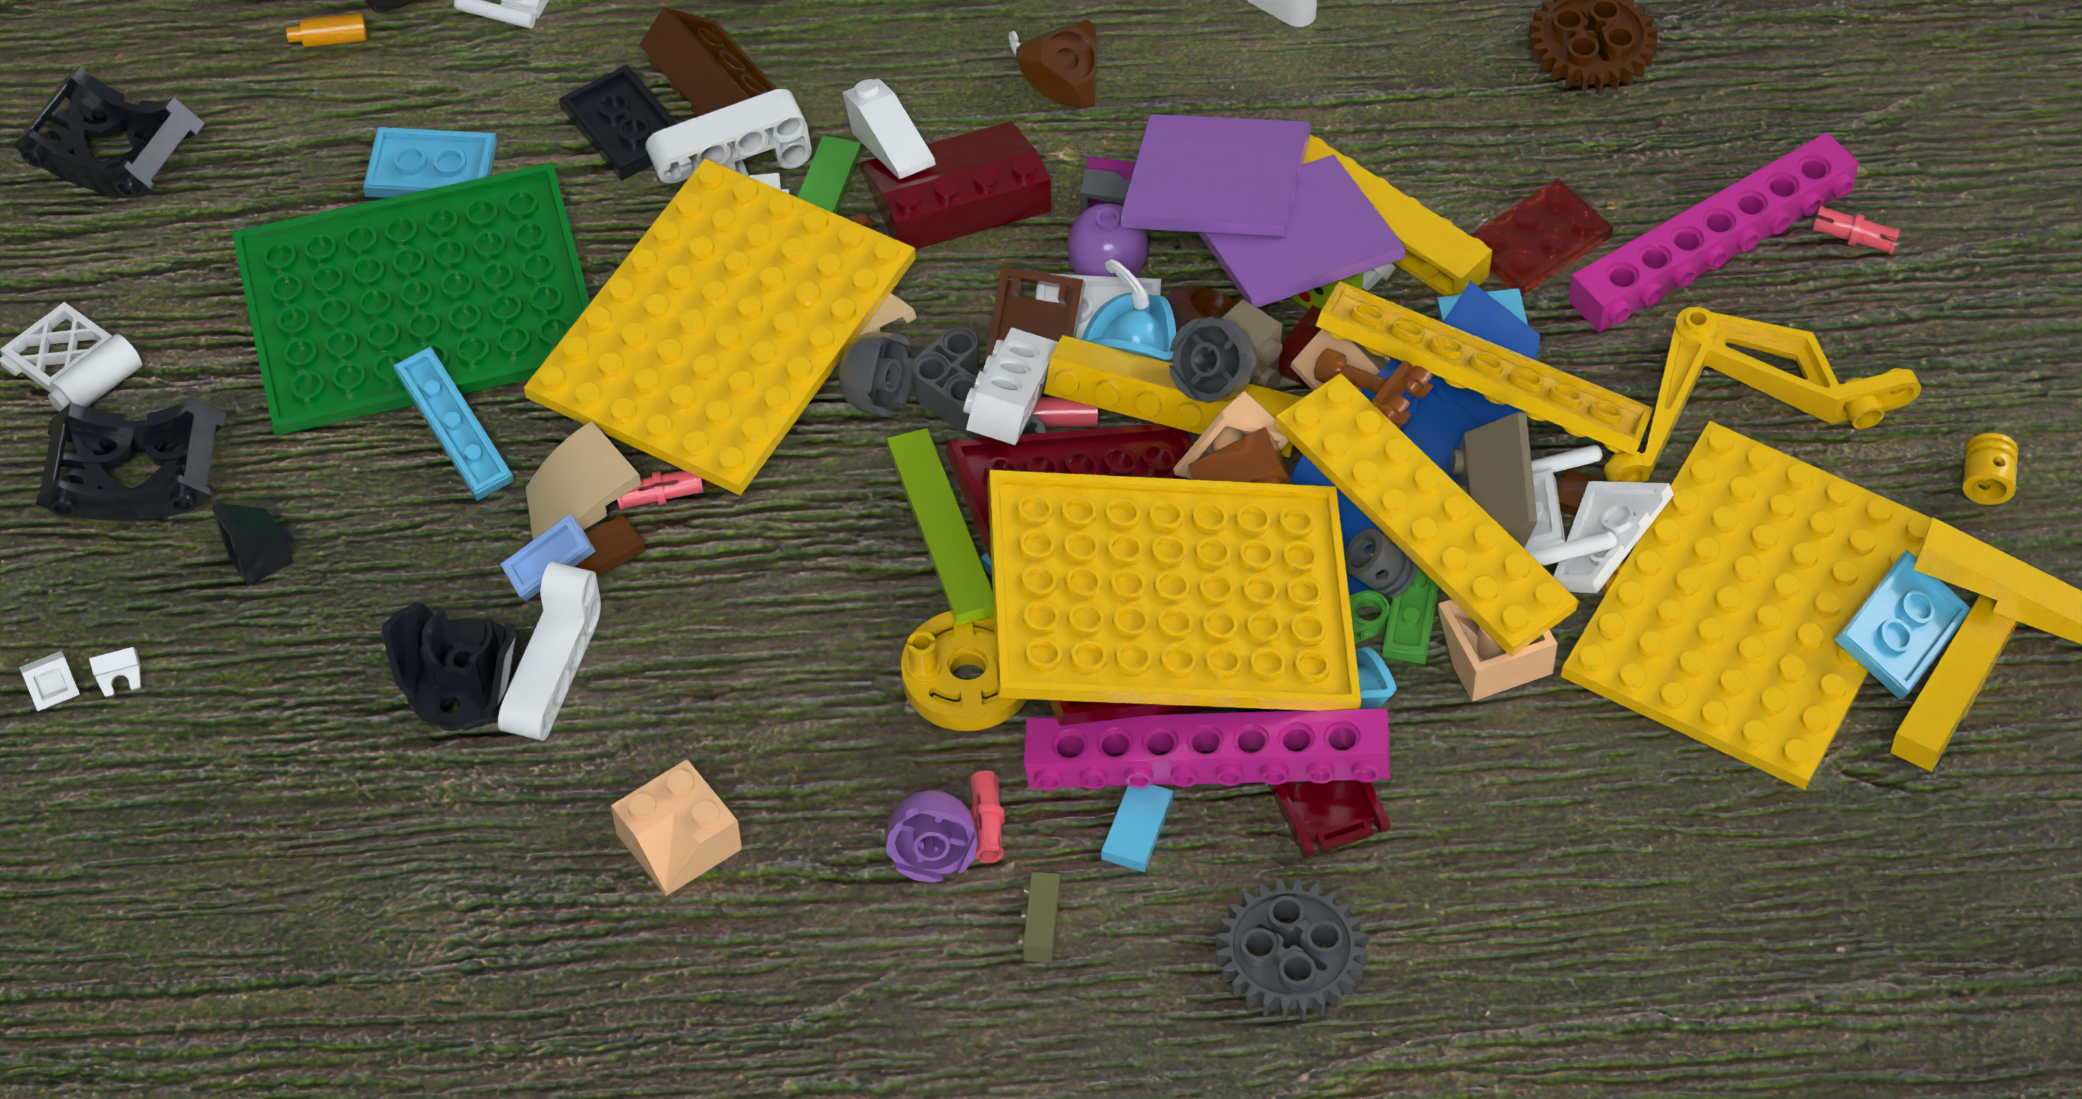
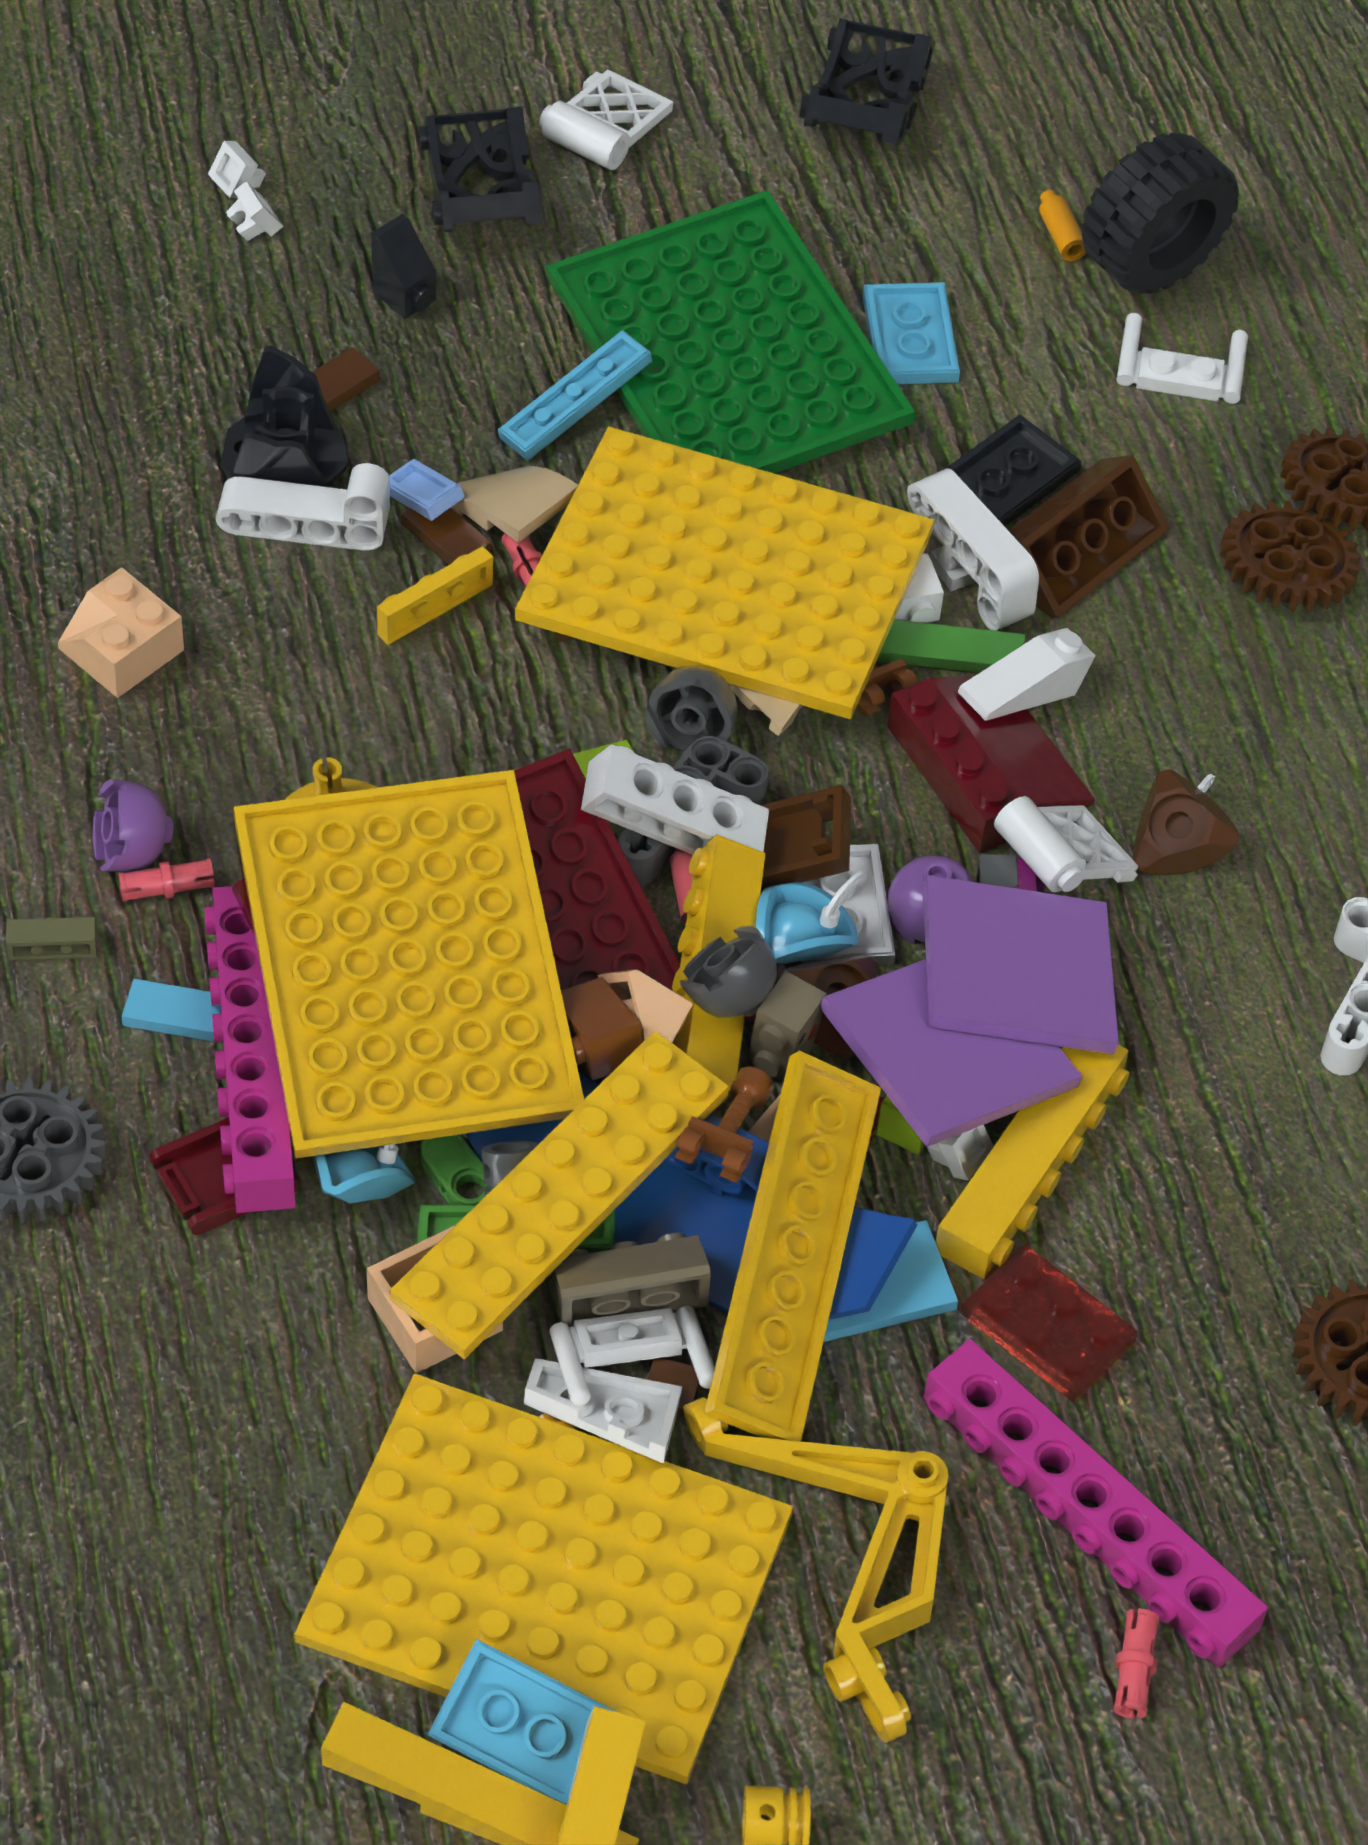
camera: 75 degrees right, 0 degrees up
(364, 617) = (345, 377): none -> reddish brown tile
(681, 565) = (434, 595): none -> yellow plate
(1082, 136) = (1059, 847): none -> white piece

